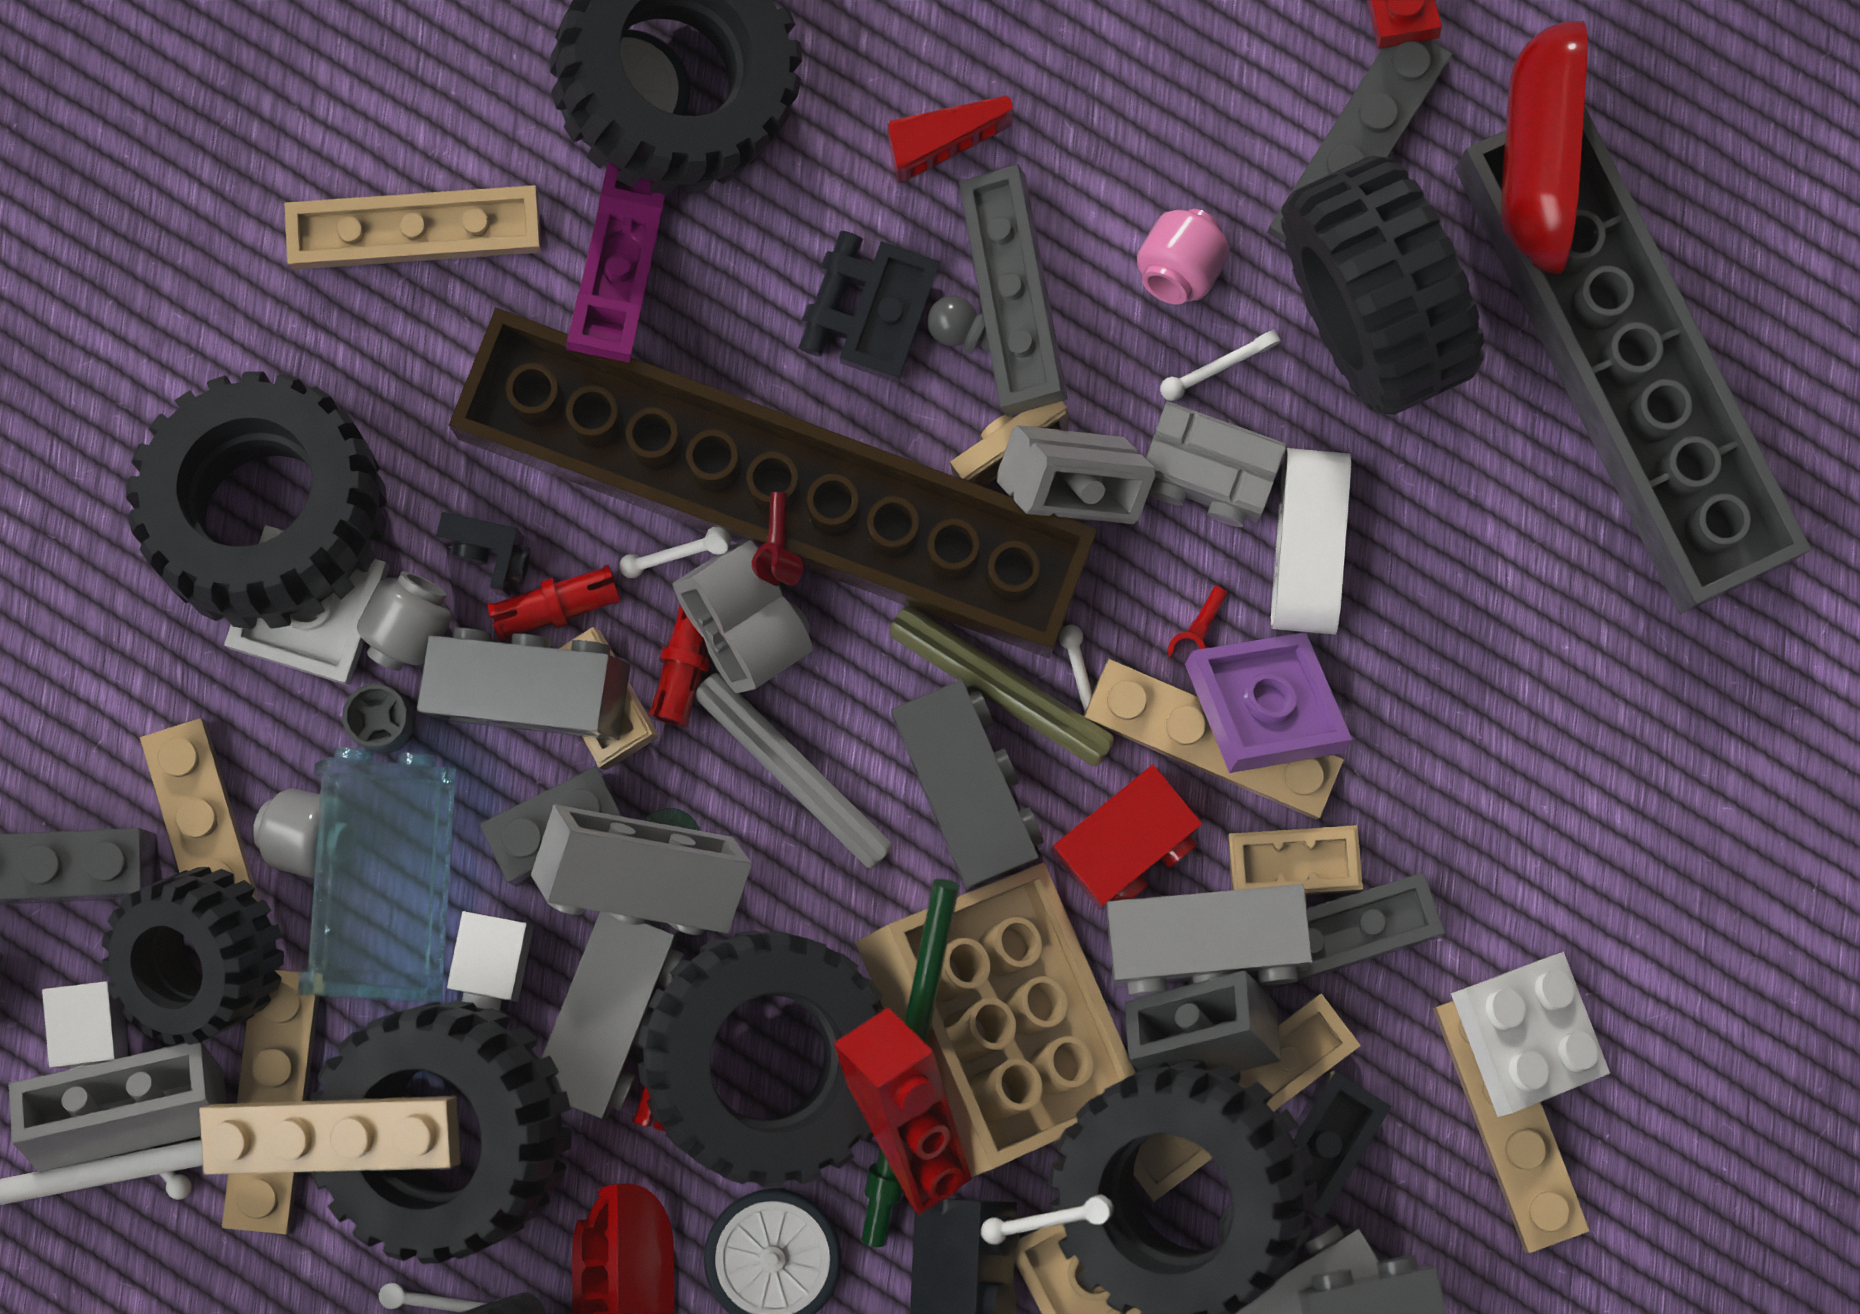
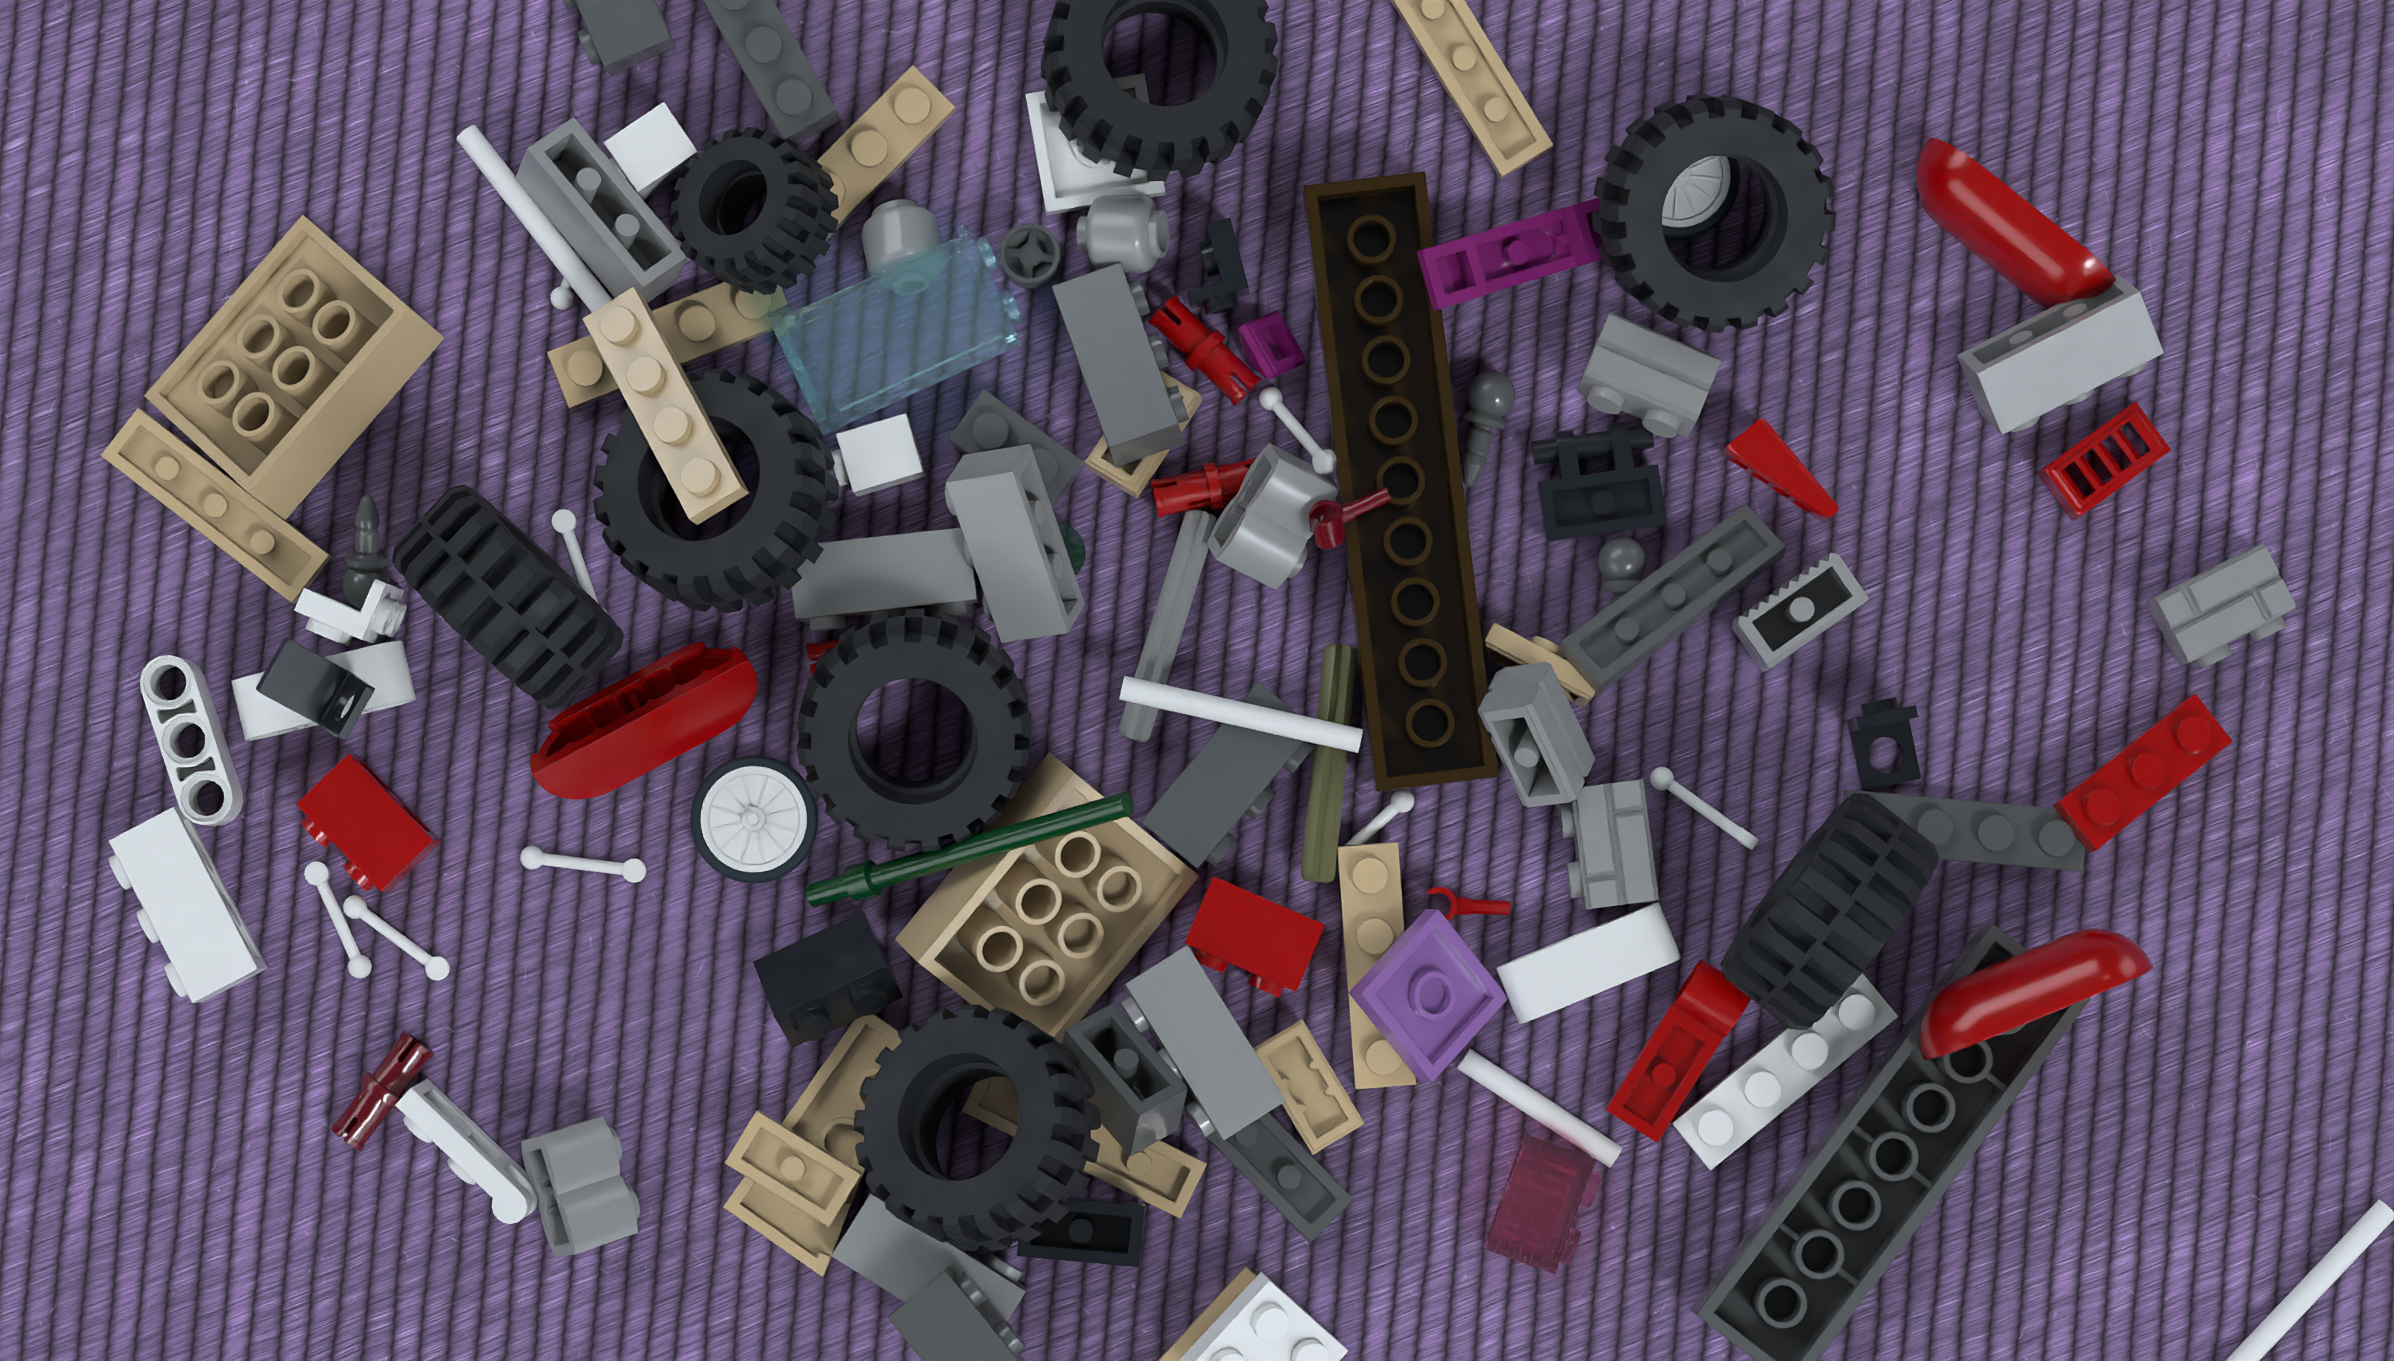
camera: 65 degrees right, 5 degrees up
(582, 540) = (1270, 346): none -> magenta slope
(739, 363) = (1489, 398): none -> dark grey bar
(795, 208) = (1647, 377): none -> light grey brick
(905, 1107) = (928, 864): red slope -> none
(913, 740) = (1241, 714): none -> white bar
(1084, 181) = (1798, 611): none -> light grey brick
(1096, 1211) = (924, 1063): white hinge -> none
(1182, 256) = (1780, 728): bright pink head -> none
(1223, 159) = (1882, 720): none -> black bracket
(1422, 656) = (1539, 1107): none -> white bar
(1433, 499) = (1678, 1051): none -> red plate
(1505, 431) = (1781, 1074): none -> white plate
(1515, 698) = (1542, 1203): none -> clear pink brick

